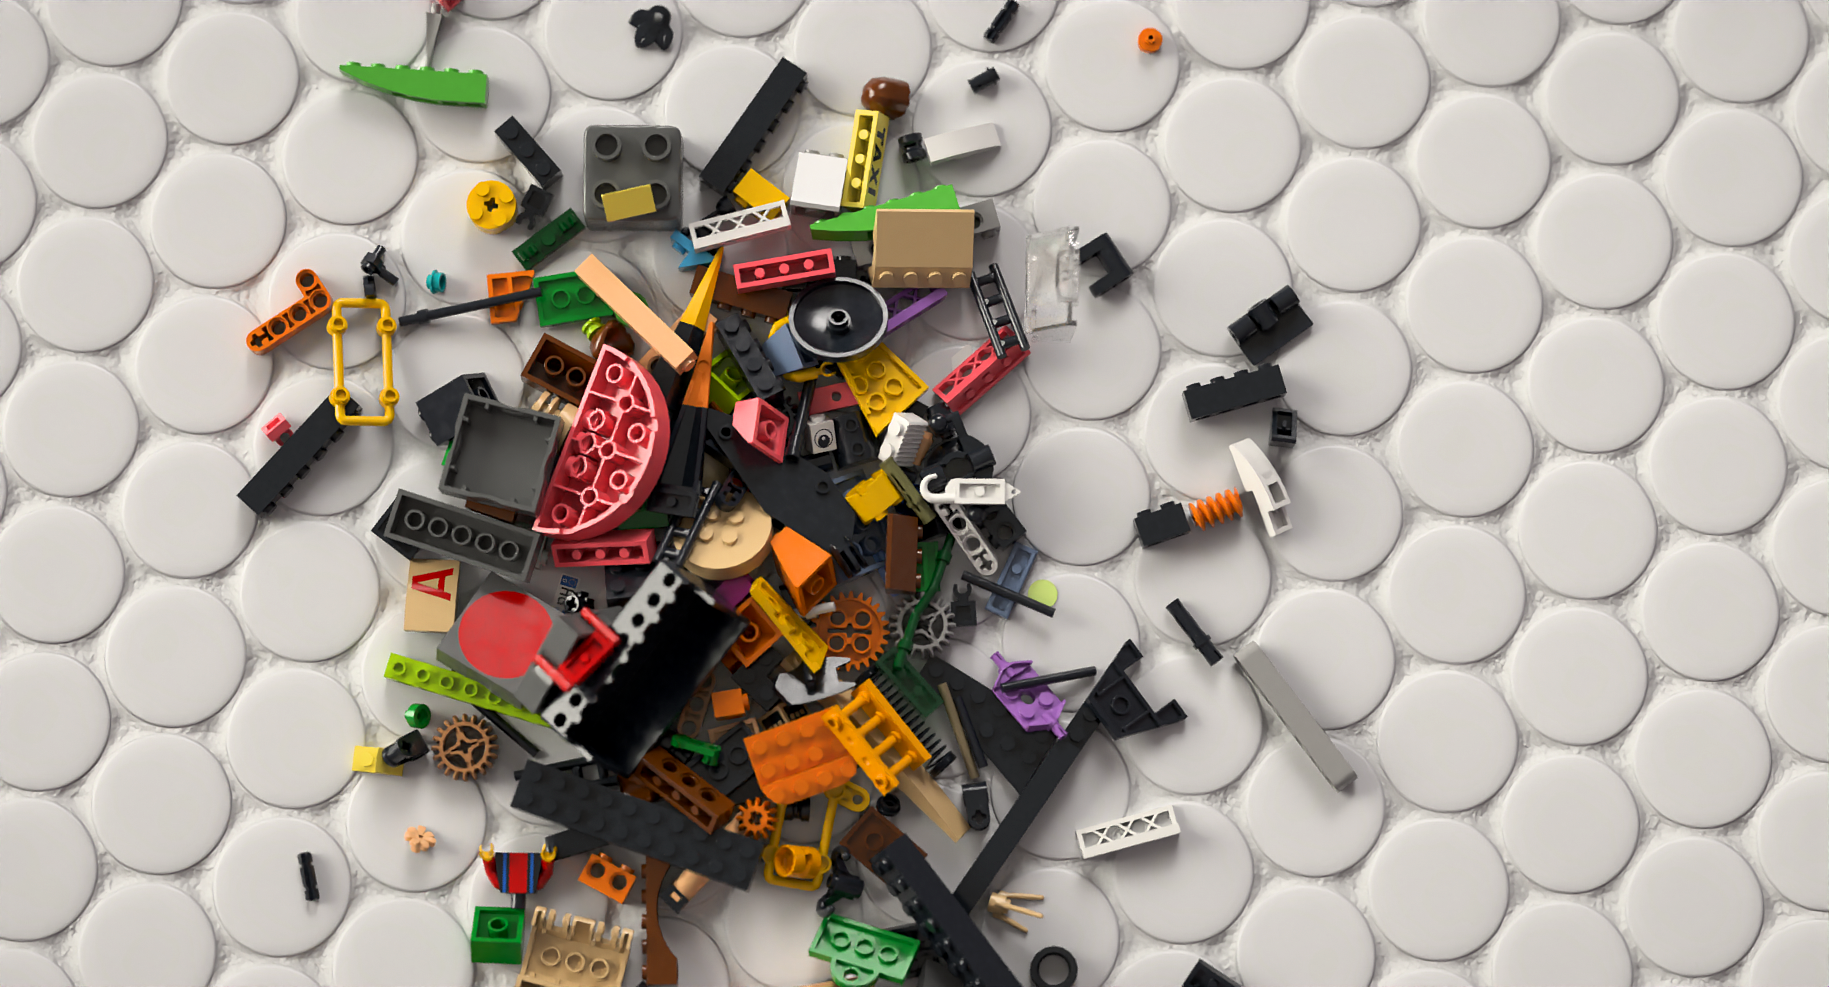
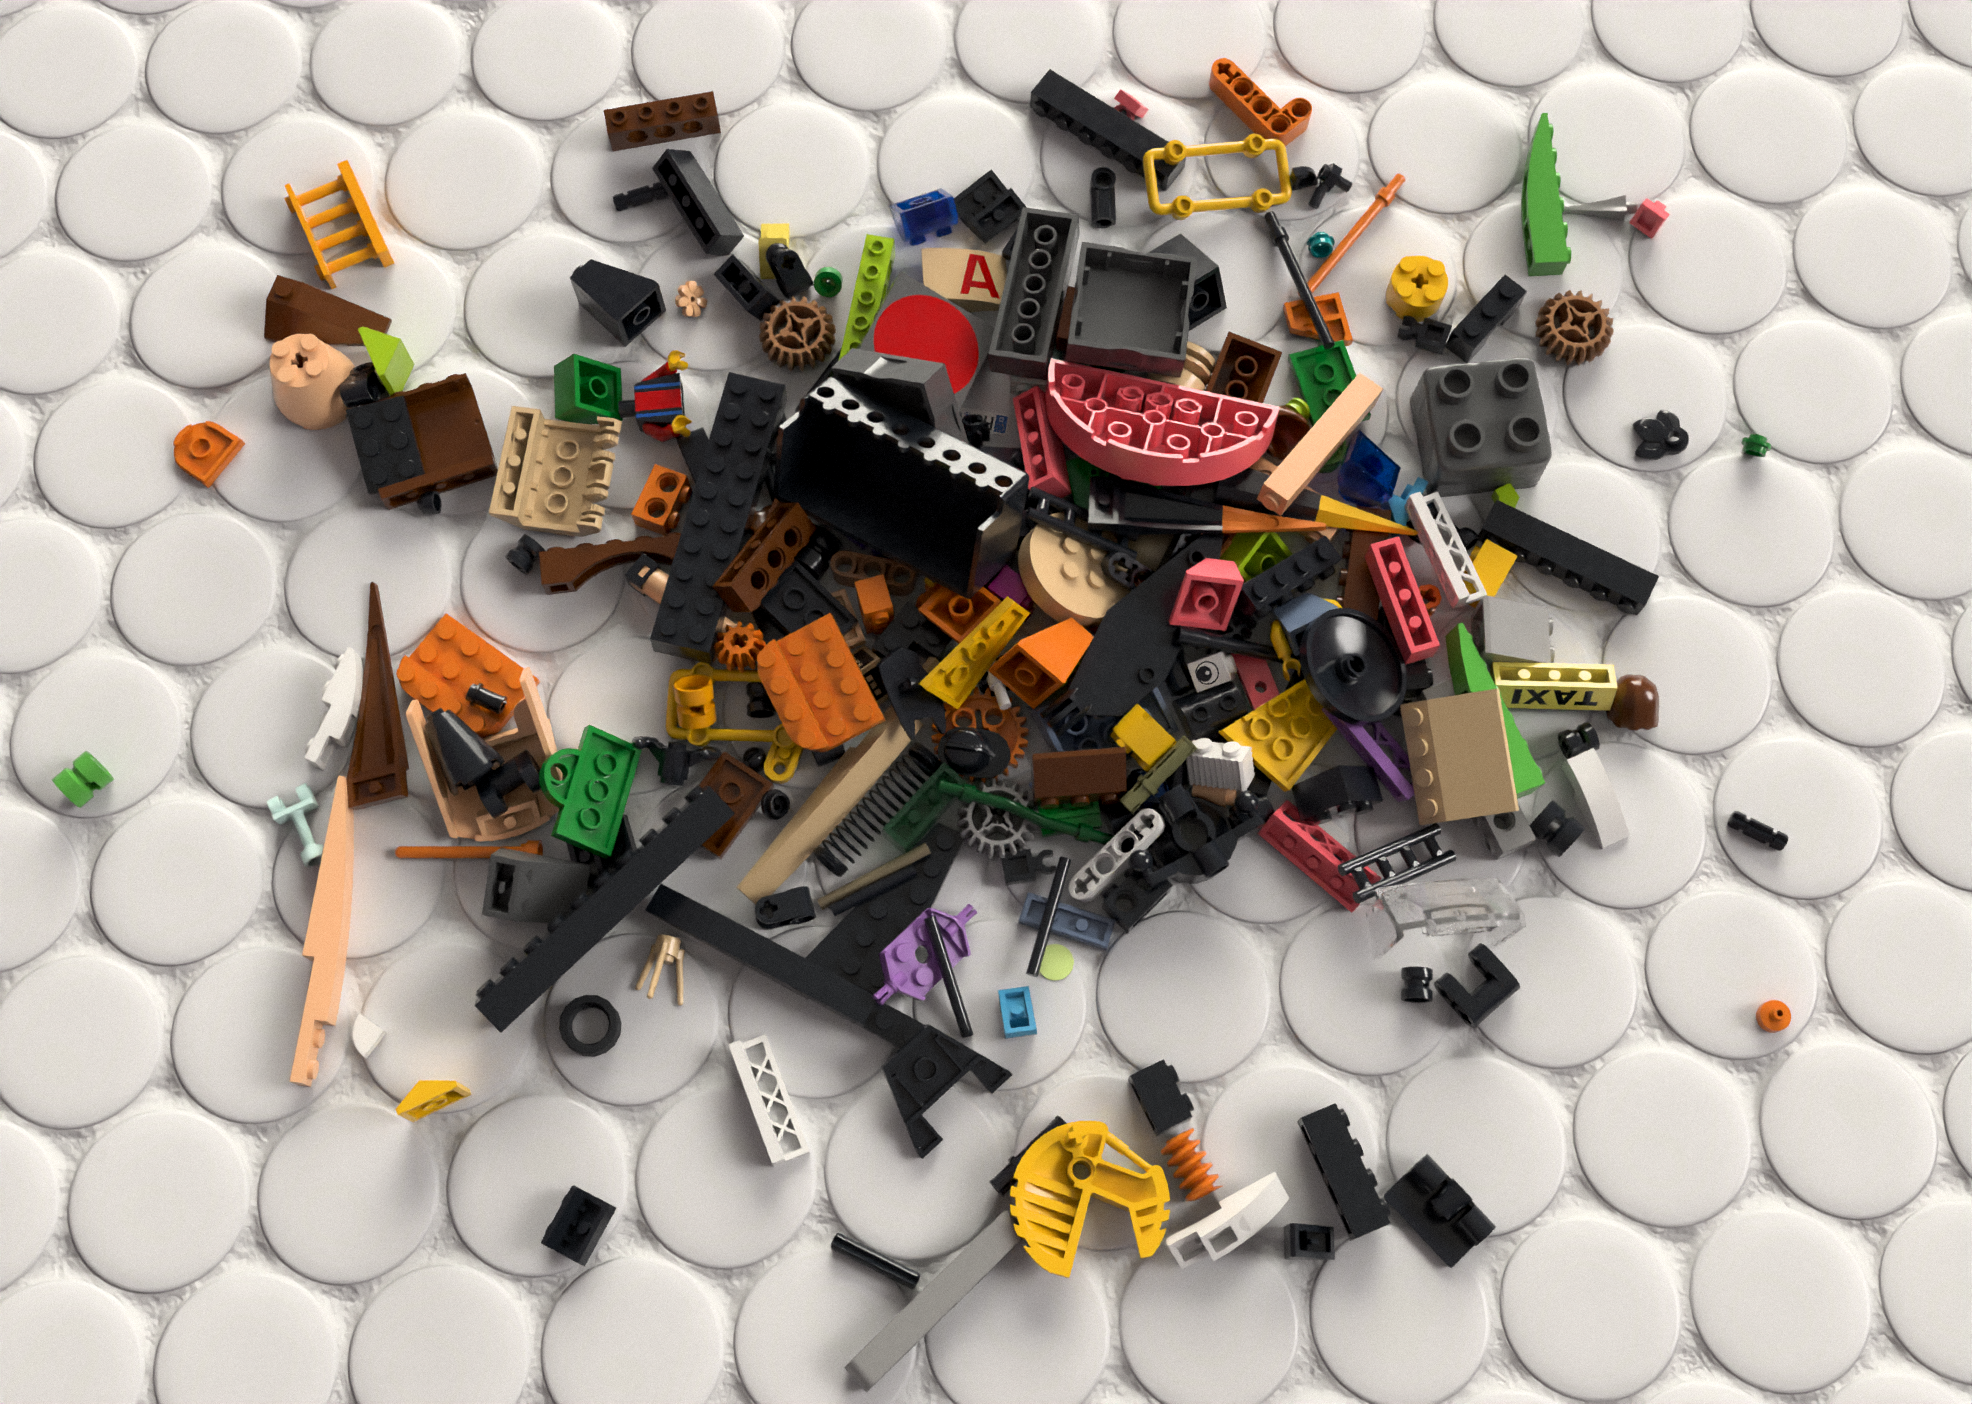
camera: 85 degrees right, 10 degrees down
(238, 849) = (662, 121): none -> reddish brown brick
(326, 823) = (697, 202): none -> black brick
(360, 567) = (988, 206): none -> black slope
(364, 624) = (924, 215): none -> clear blue brick
(370, 465) = (1103, 198): none -> black piece
(397, 219) = (1382, 199): none -> orange bar
(416, 902) = (618, 299): none -> black slope
(418, 787) = (746, 287): none -> black brick
(548, 239) = (1388, 354): dark green plate -> none
(553, 78) = (1572, 338): none -> medium nougat gear
(585, 657) = (899, 403): red plate -> none
(628, 203) = (1451, 404): light yellow slope -> none
(663, 278) = (1366, 473): none -> clear blue brick
(694, 166) = (1506, 495): none -> lime piece
(709, 750) = (819, 569): green piece -> none
(777, 242) = (1433, 595): none -> orange bush
(841, 822) = (757, 763): none -> black hinge
(866, 637) = (974, 752): none -> black piece
(889, 723) = (870, 788): light orange fence -> none
(935, 347) = (1337, 791): none -> black brick
(970, 491) = (1166, 846): white plate -> none
(984, 80) = (1680, 817): black pin -> none
(989, 174) = (1564, 836): none -> black wheel
(1083, 628) = (1017, 1012): none -> dark azure slope
(1095, 312) = (1417, 984): none -> black wheel
(1234, 616) = (1054, 1202): none -> yellow piece
(1260, 761) = (875, 1260): none -> black axle

